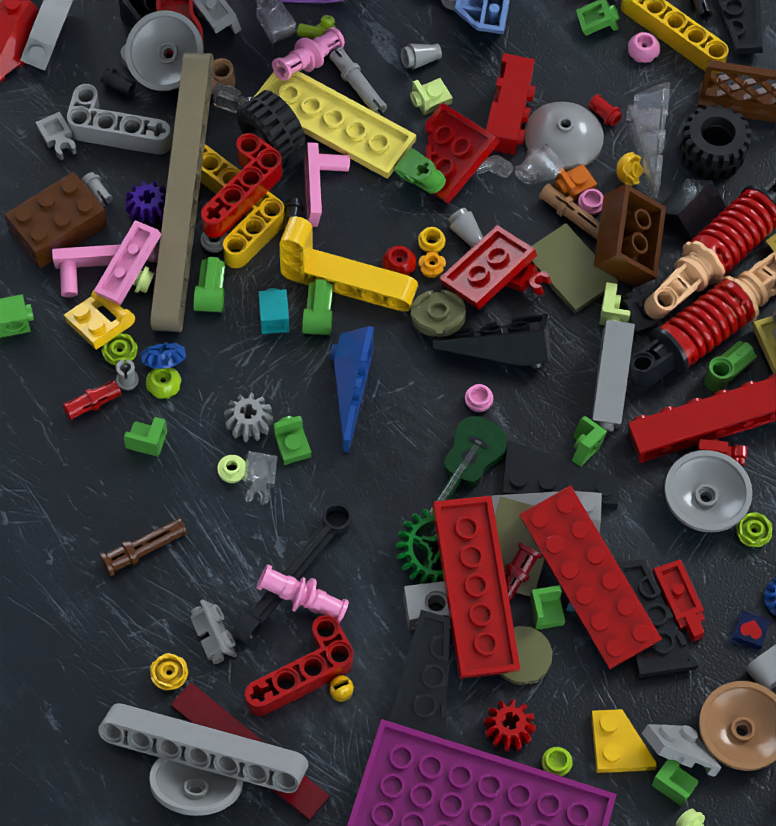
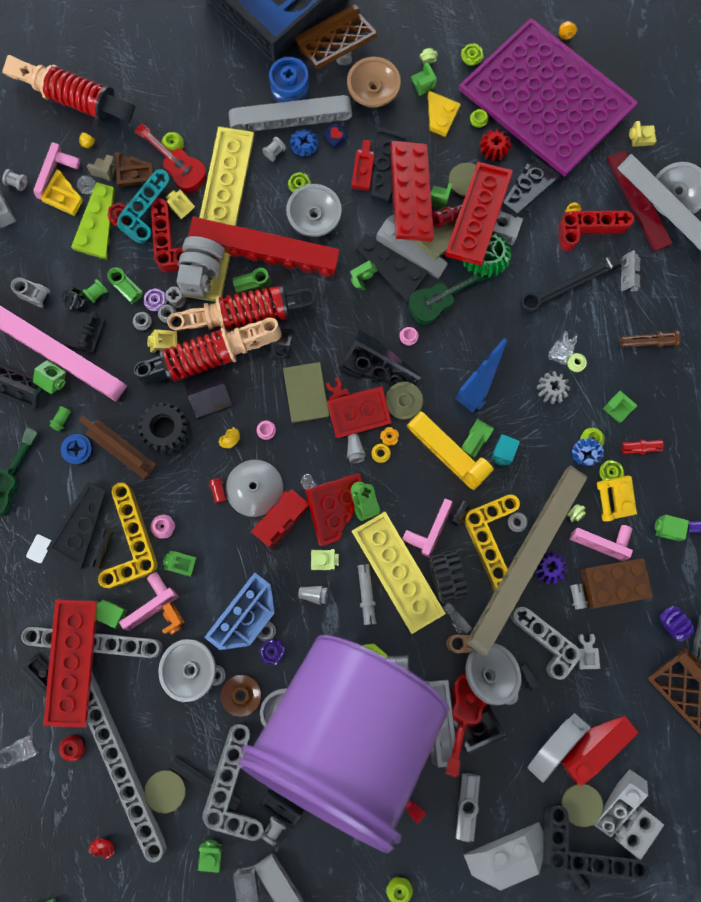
camera: 150 degrees left, 15 degrees up
(127, 377) = (615, 450): light grey pin -> none
(128, 261) = (586, 521): bright pink piece -> none
(166, 663) = (668, 256): yellow plate -> none
(210, 291) = (537, 485): bright green piece -> none
(221, 215) = (494, 535): red beam -> none
(291, 439) = (533, 363): bright green bracket -> none
(302, 593) = (574, 262): bright pink piece -> none
(308, 54) = (393, 628): bright pink piece -> none
(402, 253) = (404, 453): red plate -> none
(539, 165) = (286, 465): clear piece -> none
(566, 207) = (284, 432): medium nougat pin -> none
(574, 182) = (268, 449): orange bracket -> none
(611, 304) = (297, 354): yellowish green bracket -> none
(612, 374) = (323, 307): light grey slope -> none
(630, 236) = (261, 384): reddish brown brick -> none
(647, 132) = (197, 462): clear wedge -> none
(682, 745) = (414, 87): light grey wing -> none
(736, 452) = (289, 231): red plate -> none

